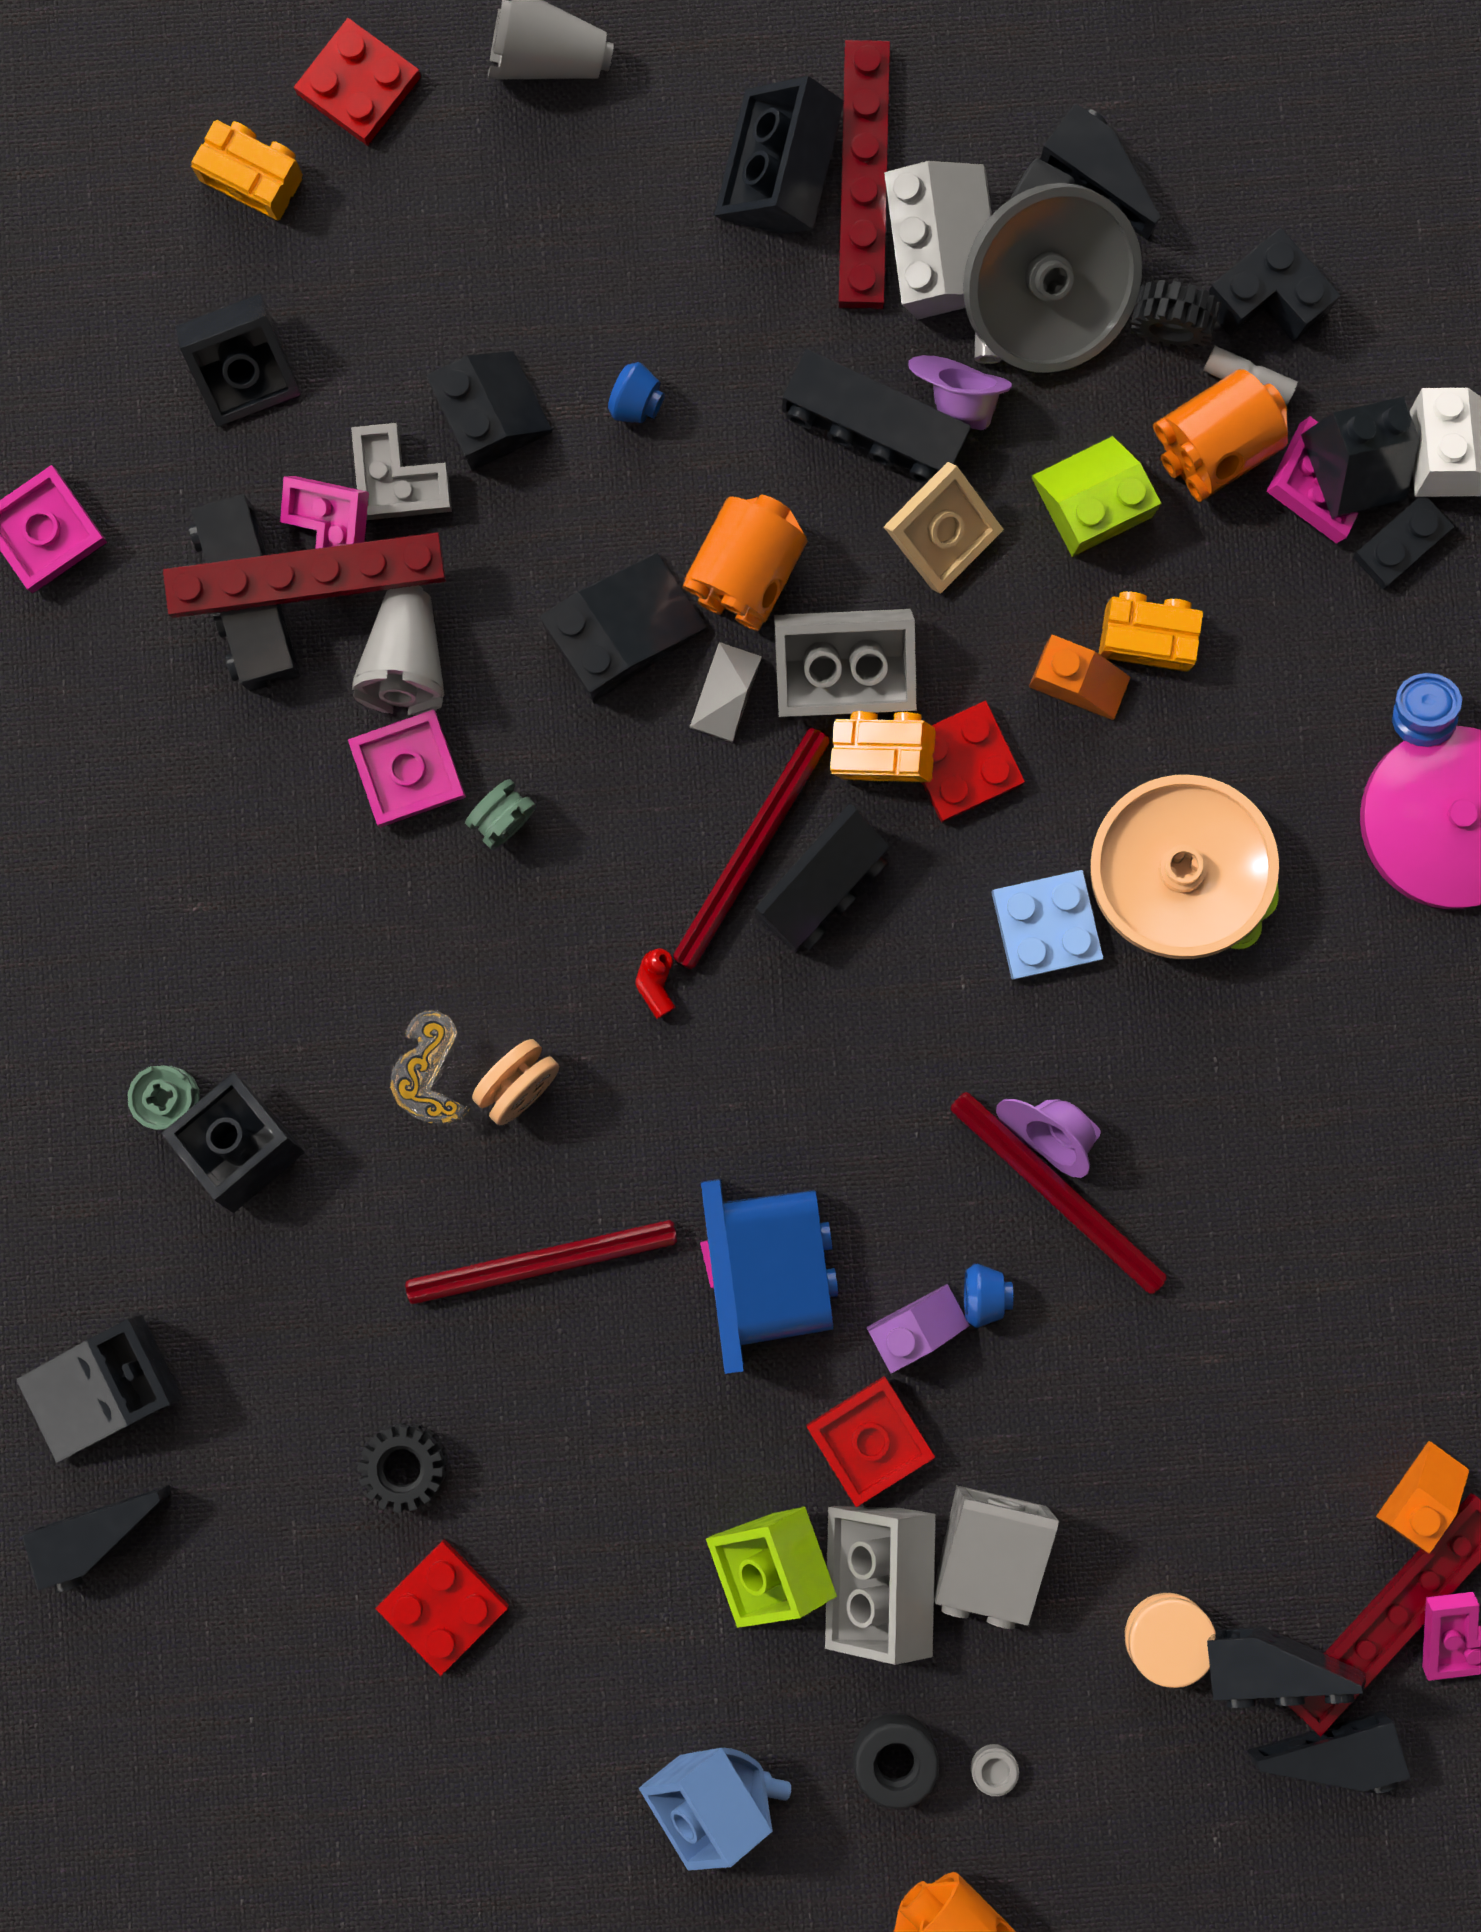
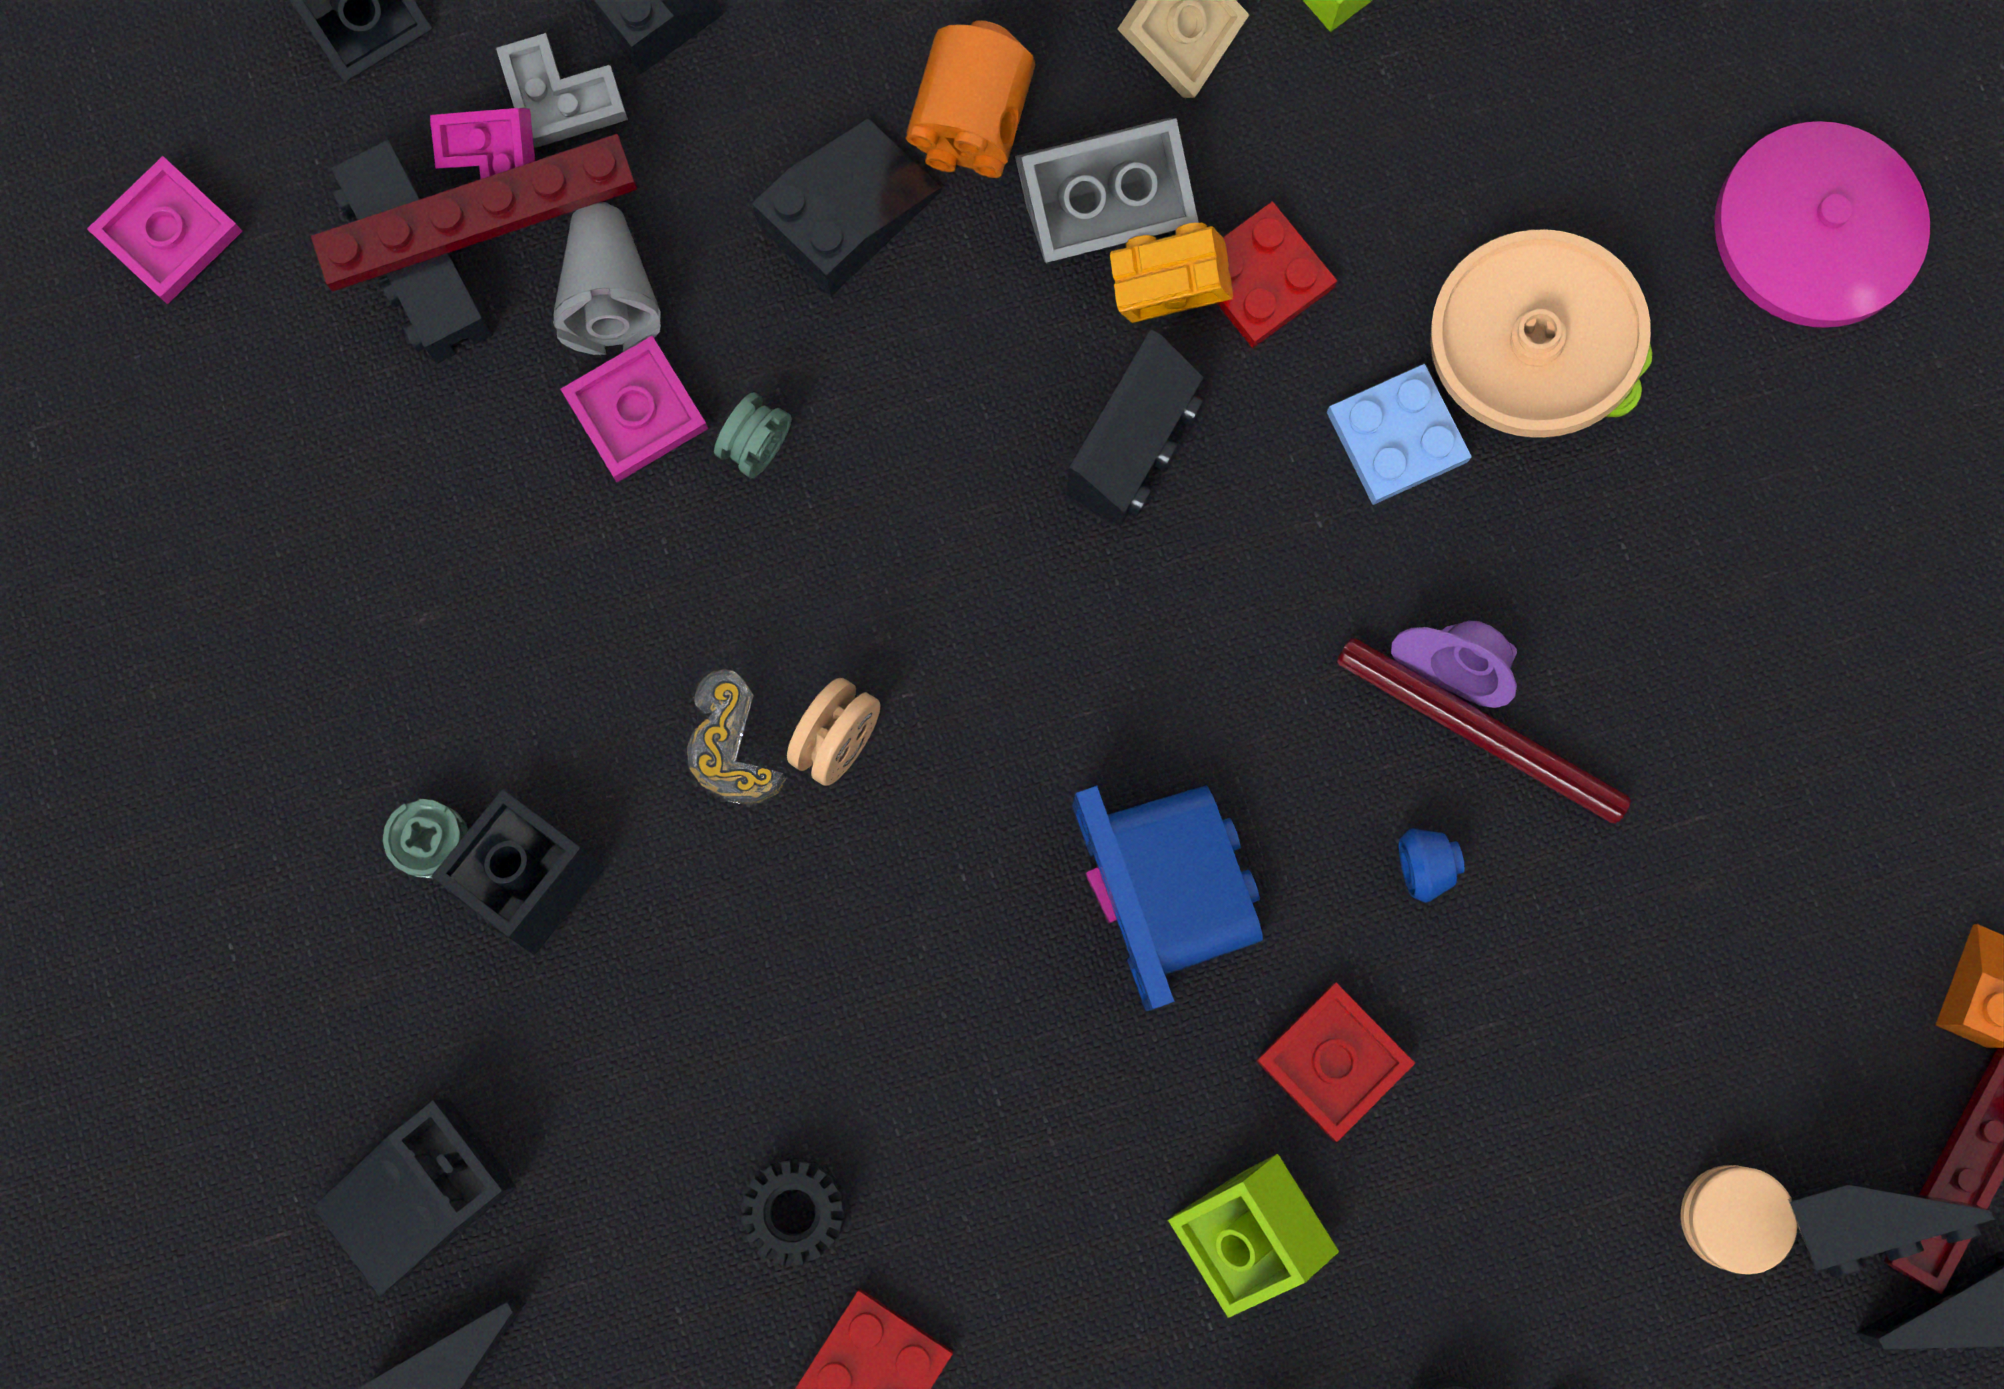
camera: 15 degrees left, 5 degrees down
(541, 1262) = (905, 936): dark red axle -> none
(651, 981) = (964, 588): red arm -> none
(725, 692) = (978, 254): light grey slope -> none
(751, 848) = (1045, 419): dark red axle -> none
(882, 1583) = (1389, 1222): light grey slope -> none
(918, 1328) = (1358, 920): medium lavender slope -> none
(993, 1557) = (1512, 1166): light grey slope -> none
(1080, 677) = (1370, 154): orange slope -> none
(1151, 632) = (1439, 90): light orange brick -> none
(1426, 709) = (1765, 109): wheel -> none

